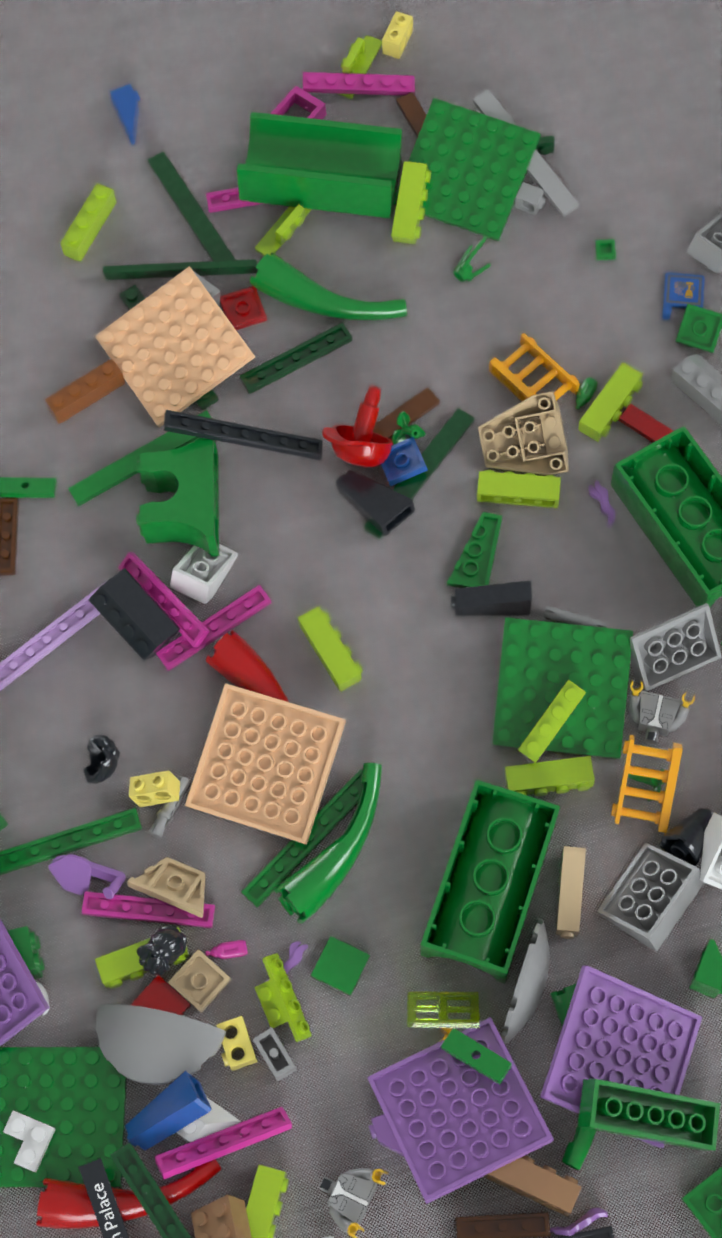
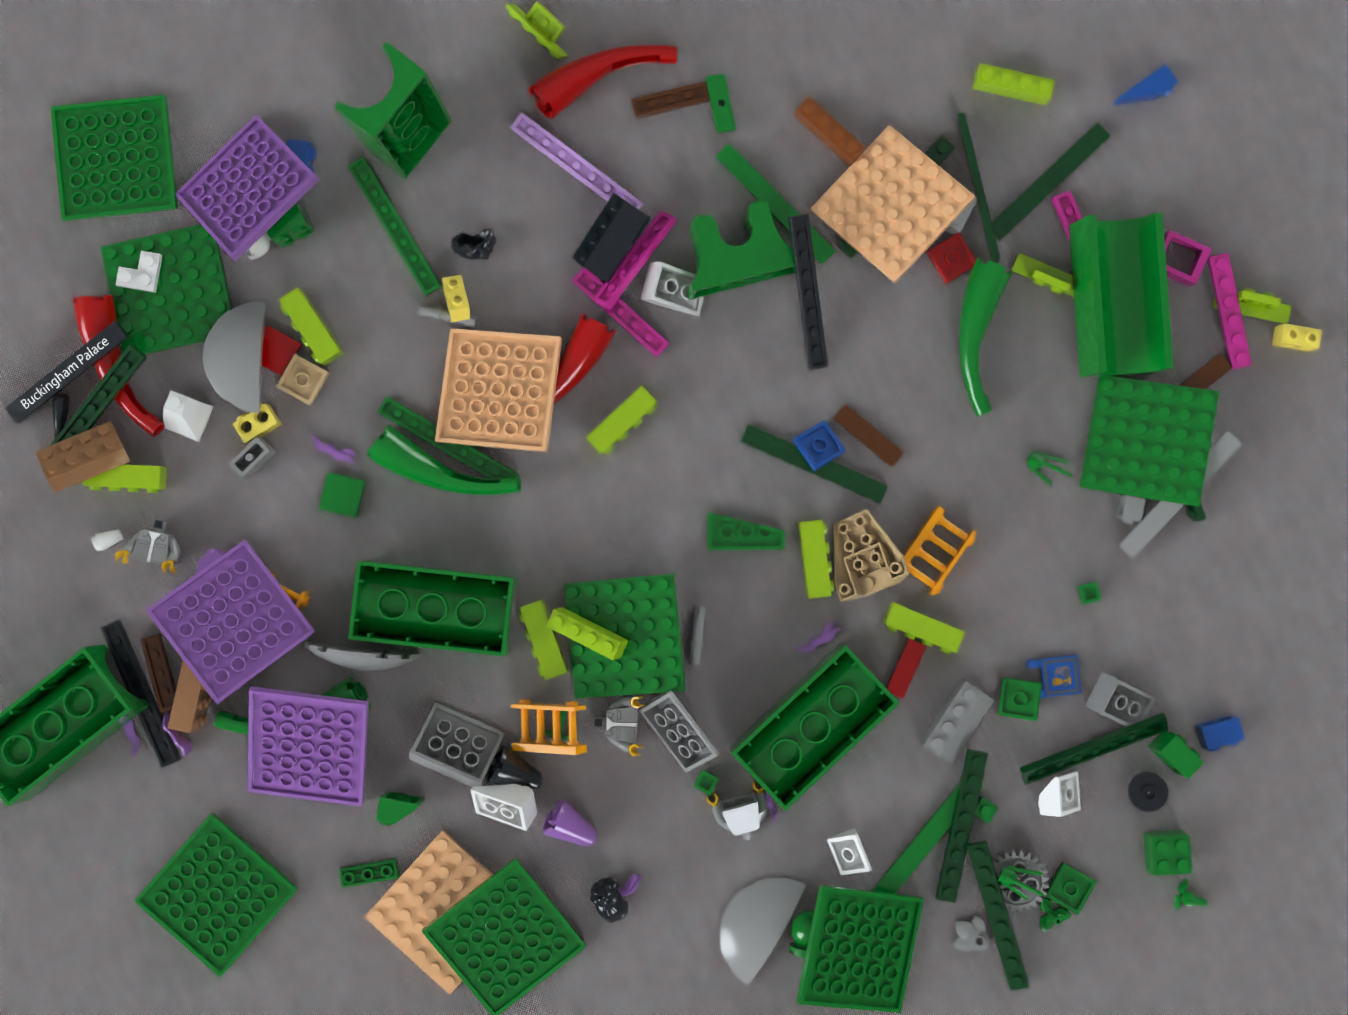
camera: 75 degrees right, 20 degrees up
(75, 874) = (373, 250): medium lavender piece -> none
(144, 910) = (353, 320): dark pink plate -> none
(162, 950) = (314, 343): black hair -> none
(169, 1112) = (183, 383): blue slope -> none
(173, 884) = (377, 337): tan wing -> none
(223, 1142) = (169, 433): dark pink plate -> none
(229, 950) = (335, 398): dark pink piece -> none
(280, 1000) = (299, 452): lime bracket -> none
(296, 358) = (908, 321): dark green plate -> none
(359, 443) = (827, 401): red piece -> none
(376, 502) = (770, 431): black slope -> none
(410, 202) = (1098, 393): lime brick -> none
(413, 430) = (853, 447): green plant -> none
(442, 1010) = (316, 589): clear neon green window -> none
(465, 1049) = (269, 639): green tile -> none
(493, 599) = (697, 556): black slope -> none
(570, 891) = (442, 677): tan slope -> none
(586, 392) = (930, 602): green piece -> none
(649, 1114) = (261, 777): green brick -> none

